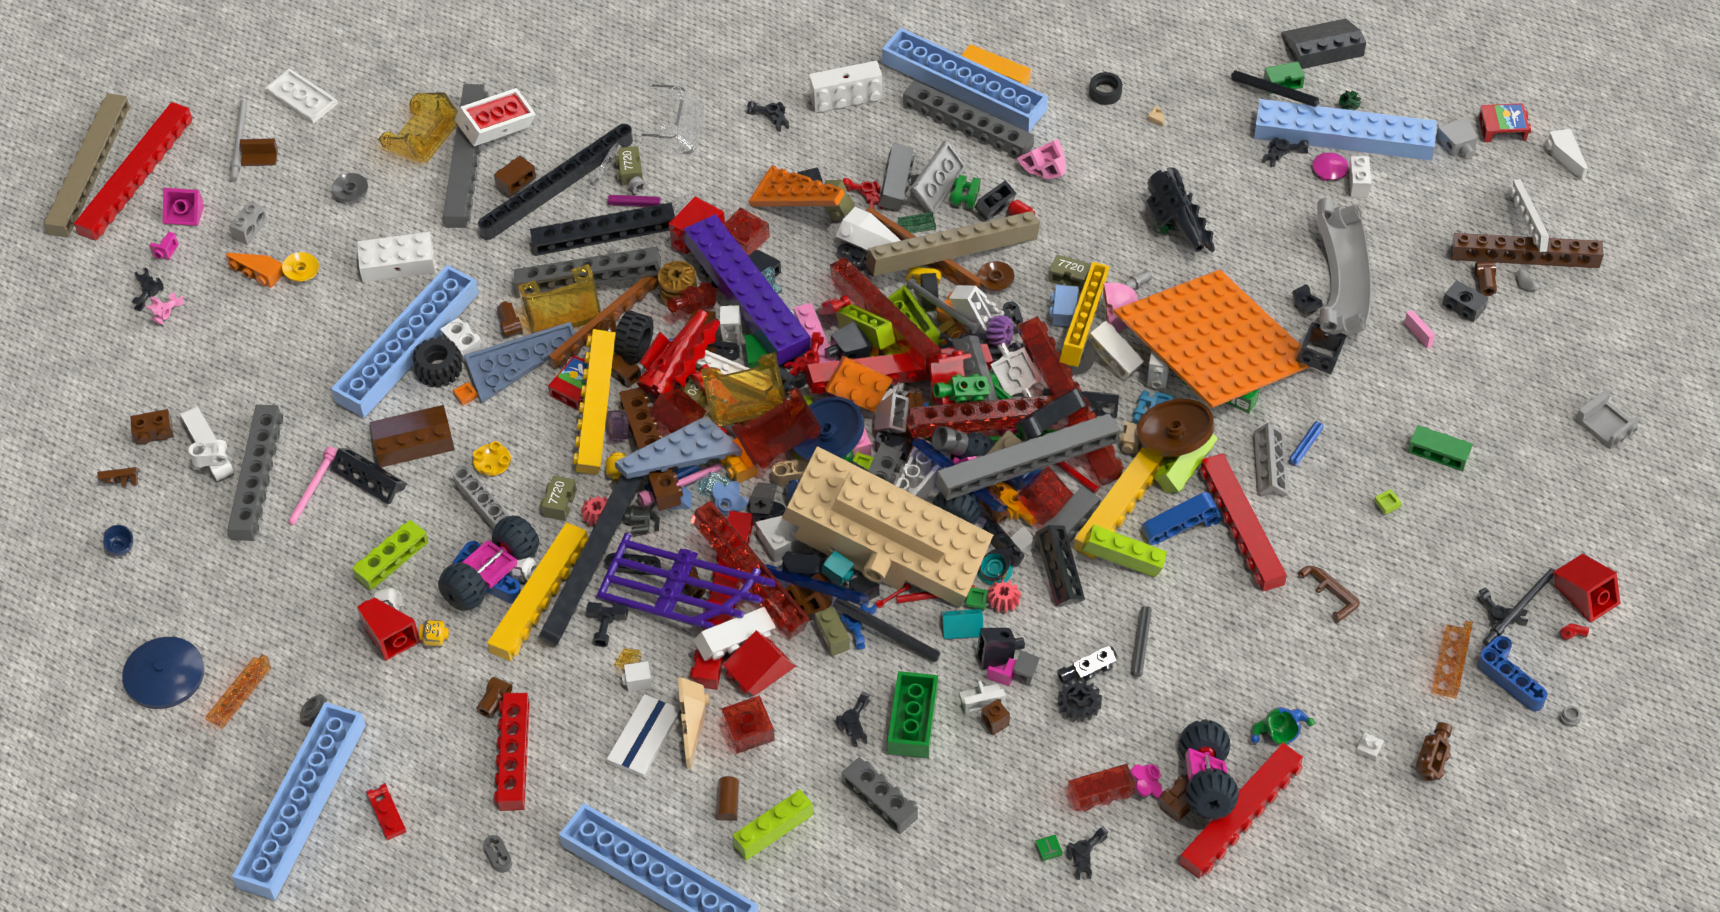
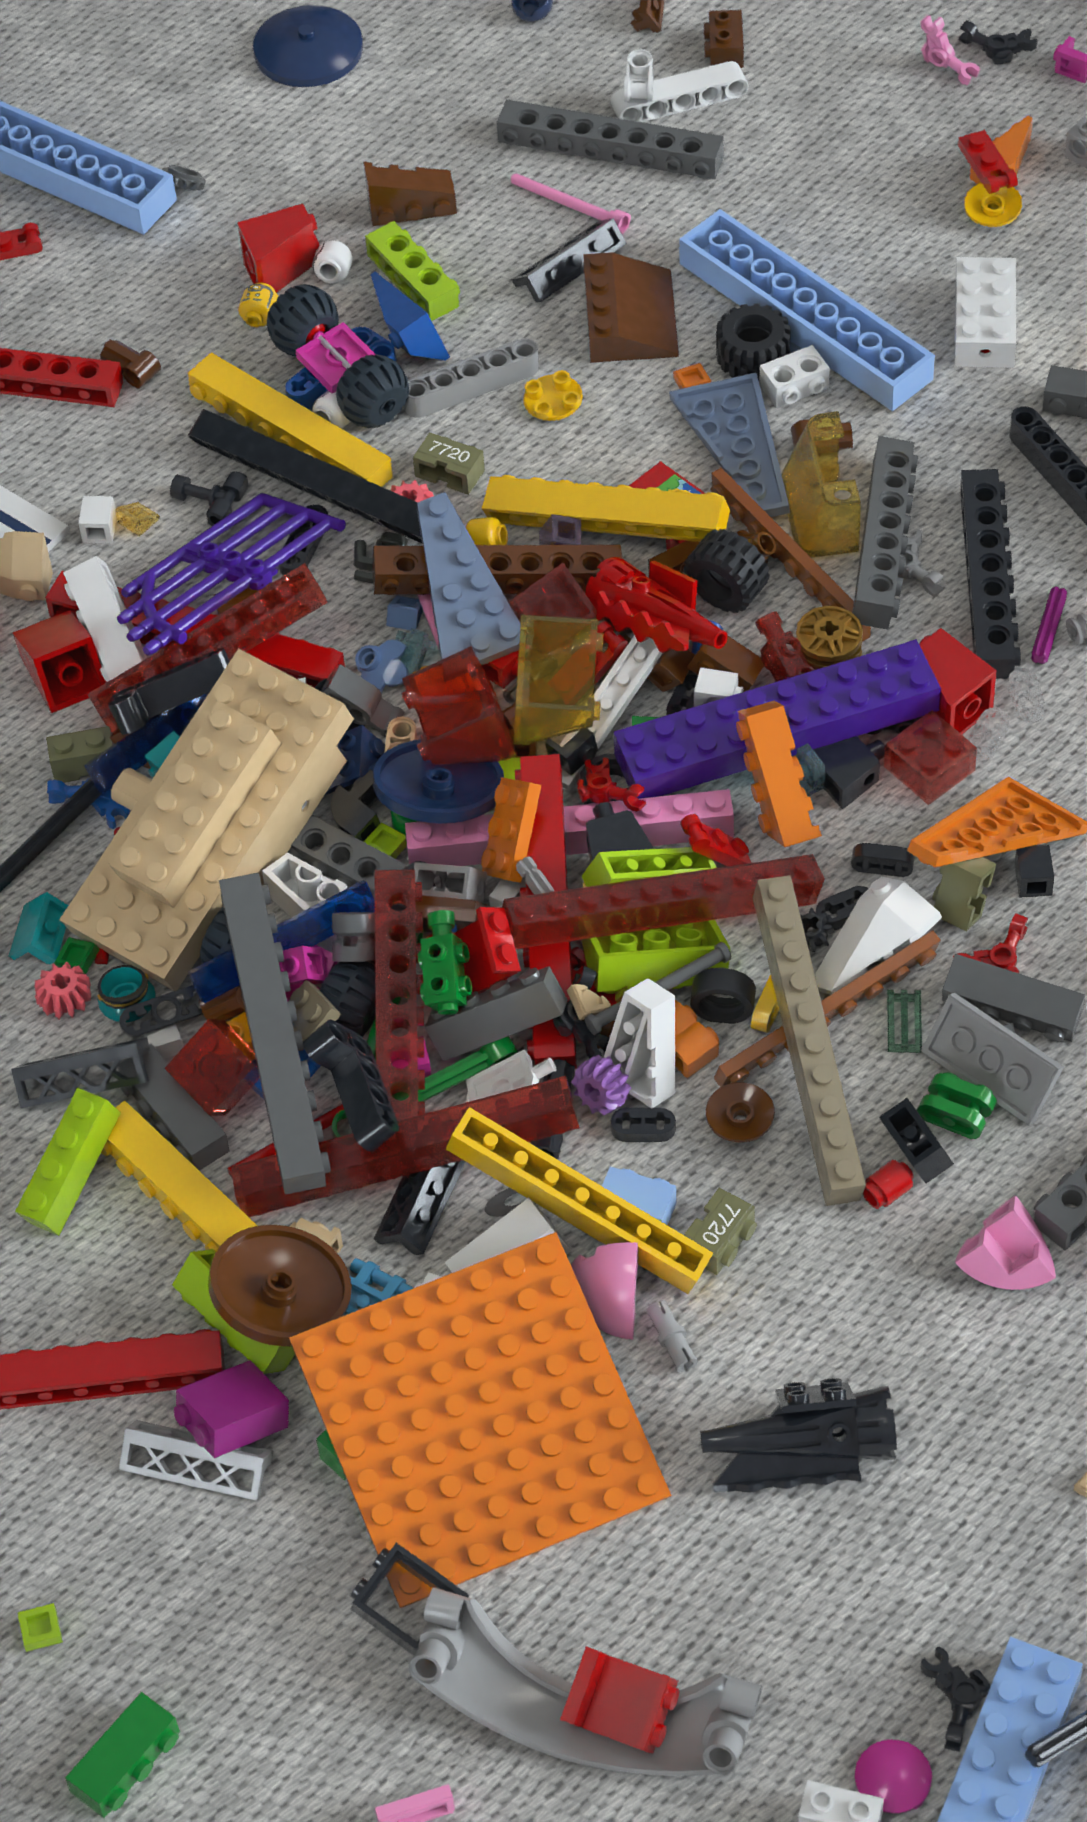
camera: 105 degrees right, 0 degrees up
(239, 691) = (244, 112): clear orange fence -> none
(274, 265) = (987, 161): none -> red plate
(322, 570) = (408, 194): none -> reddish brown wedge
(449, 536) = (408, 322): none -> blue wedge
(780, 550) = (166, 690): none -> black beam
(791, 278) = (776, 774): none -> orange wedge
(817, 245) = (882, 859): none -> black beam
(895, 362) = (534, 878): none -> light grey axle
(962, 331) = (586, 1001): none -> tan tile
(1181, 517) = (111, 1278): blue beam -> none
(1245, 441) = (231, 1409): none -> magenta brick
(1305, 300) = (543, 1621): black bracket -> none
(1306, 443) = (217, 1529): axle -> none
(1339, 256) = (620, 1700): none -> red panel

